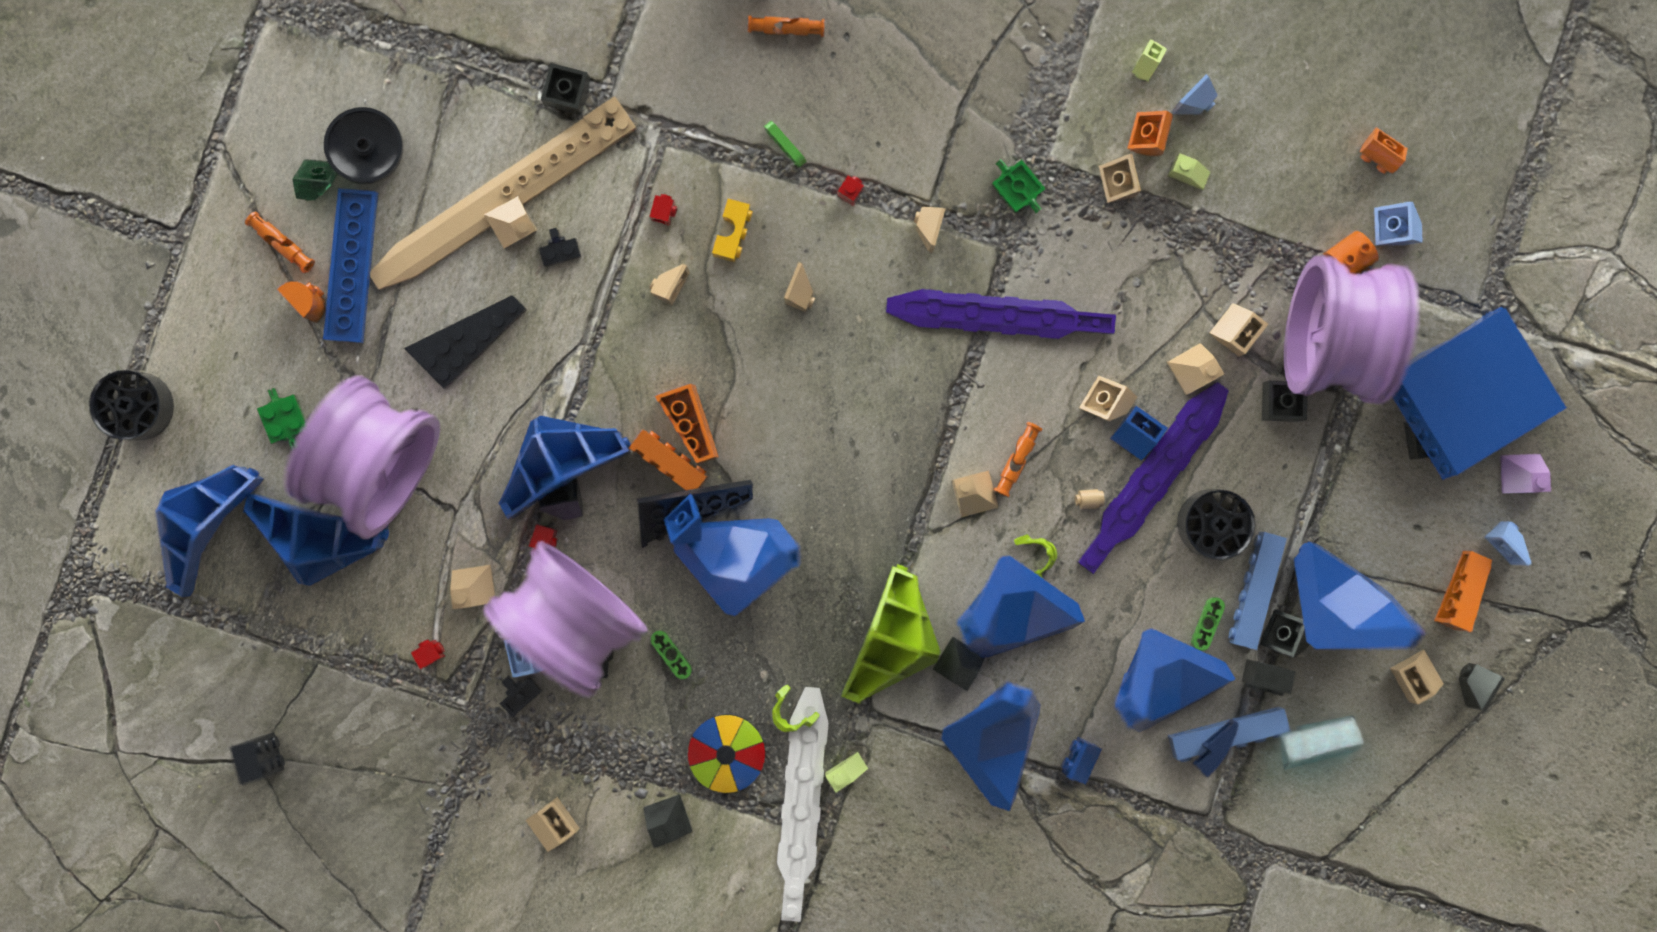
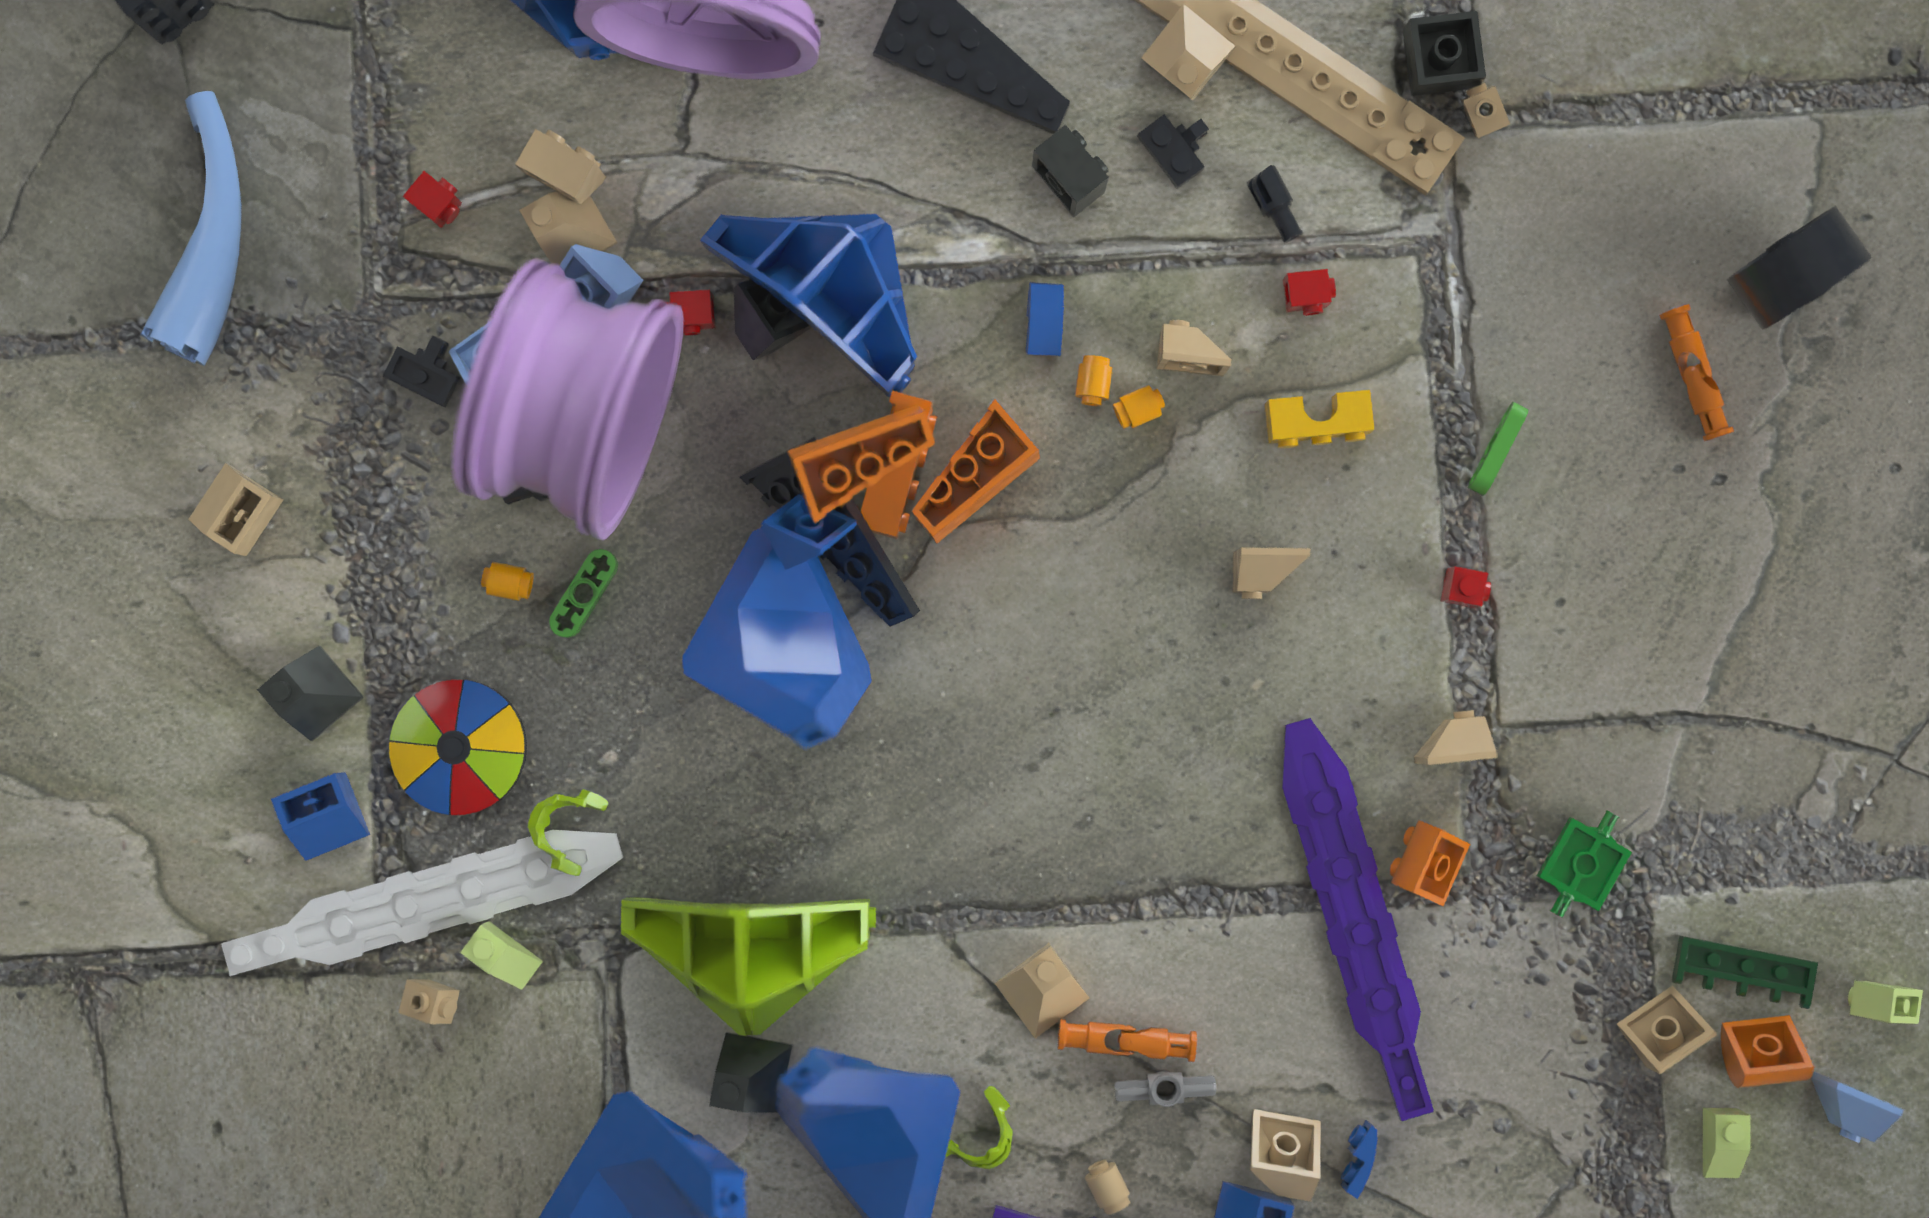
camera: 75 degrees right, 0 degrees up
(429, 800) = (201, 286): none -> light blue brick
(438, 578) = (560, 167): none -> tan slope
(506, 578) = (601, 276): none -> light blue slope
(549, 308) = (1070, 170): none -> pearl dark grey brick
(609, 208) = (1274, 201): none -> black arm
(611, 79) = (1491, 121): none -> tan brick
(623, 353) = (1045, 319): none -> blue slope
(648, 692) = (507, 581): none -> light orange brick
(657, 482) = (856, 458): none -> orange wedge
(665, 340) = (1094, 380): none -> light orange brick
(688, 322) = (1139, 407): none -> light orange brick
(734, 840) = (321, 816): none -> blue slope
(855, 819) = (429, 1001): none -> tan brick
(986, 265) = (1429, 862): none -> orange brick
(1053, 439) = (1183, 1087): none -> light grey axle
(1103, 125) = (1745, 968): none -> dark green hinge
(1118, 358) = (1363, 1146): none -> blue slope

